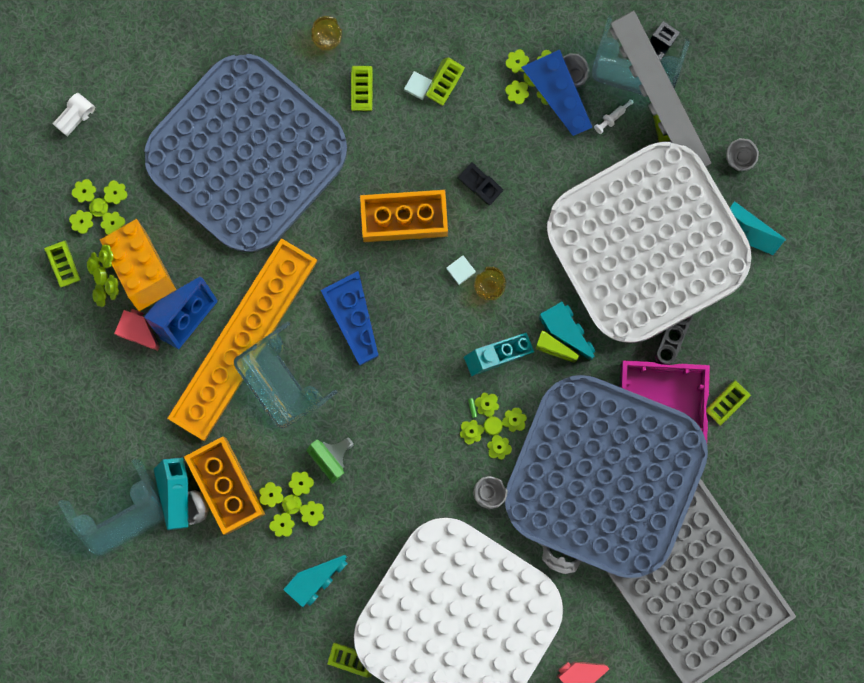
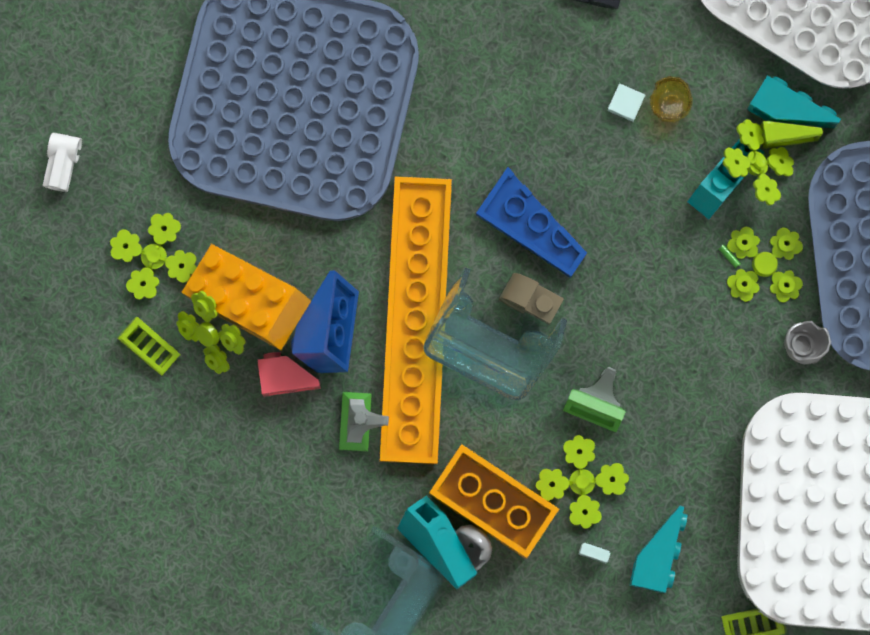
camera: 30 degrees left, 0 degrees up
(168, 385) = (357, 421): none -> piece
(272, 555) = (594, 553): none -> light aqua tile
(324, 366) = (529, 297): none -> dark tan brick
(404, 216) = (526, 73): light orange brick -> none
(522, 355) = (756, 163): none -> lime plant

